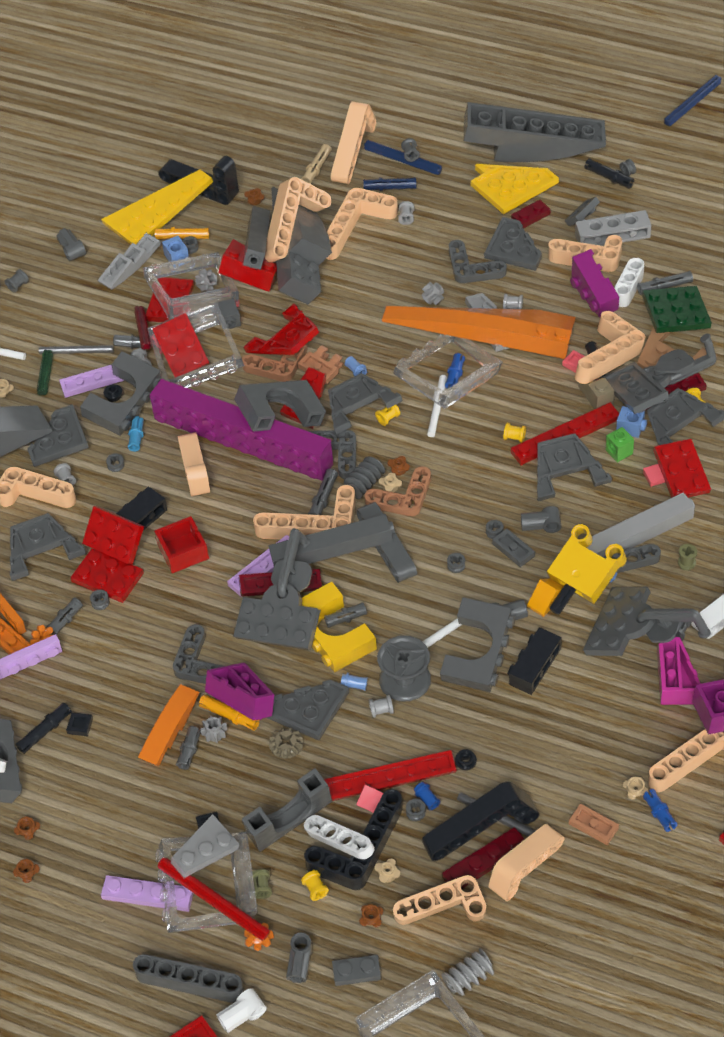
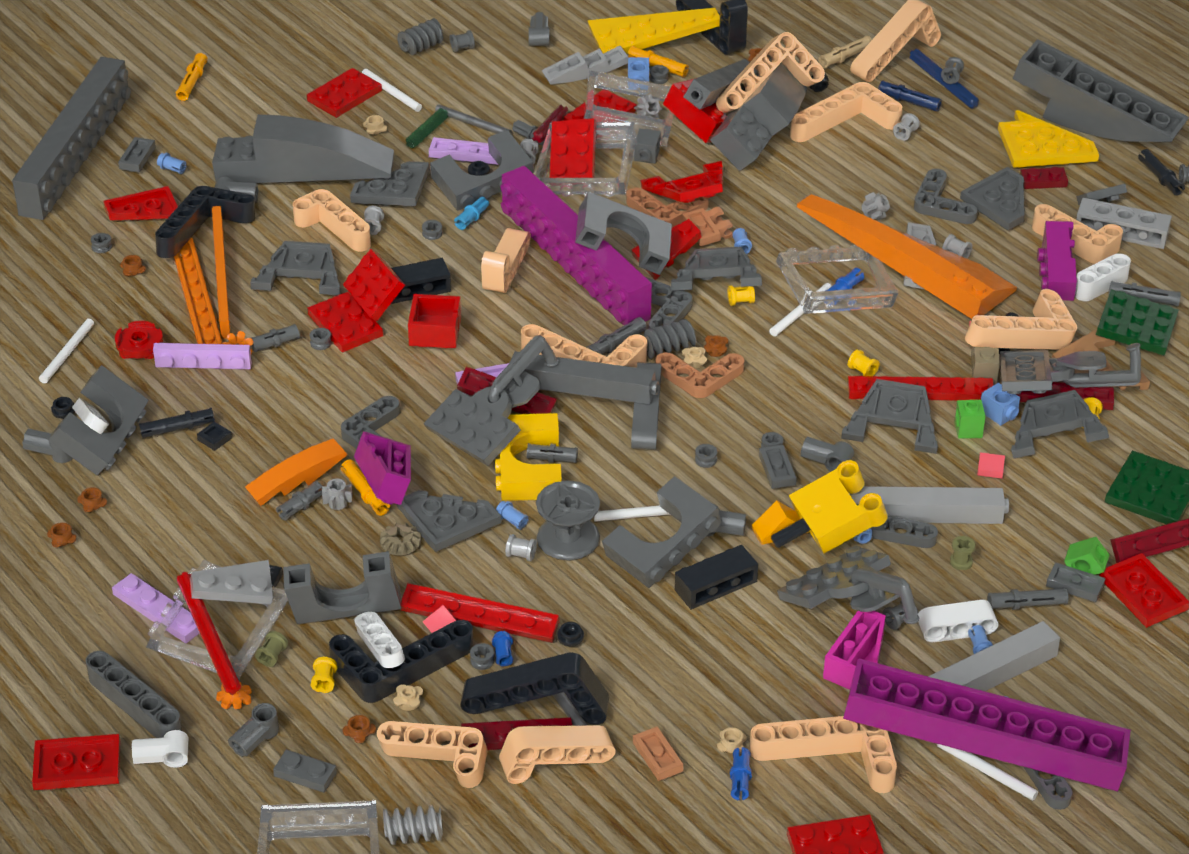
camera: 25 degrees right, 10 degrees down
(682, 468) = (1022, 469): red plate -> none

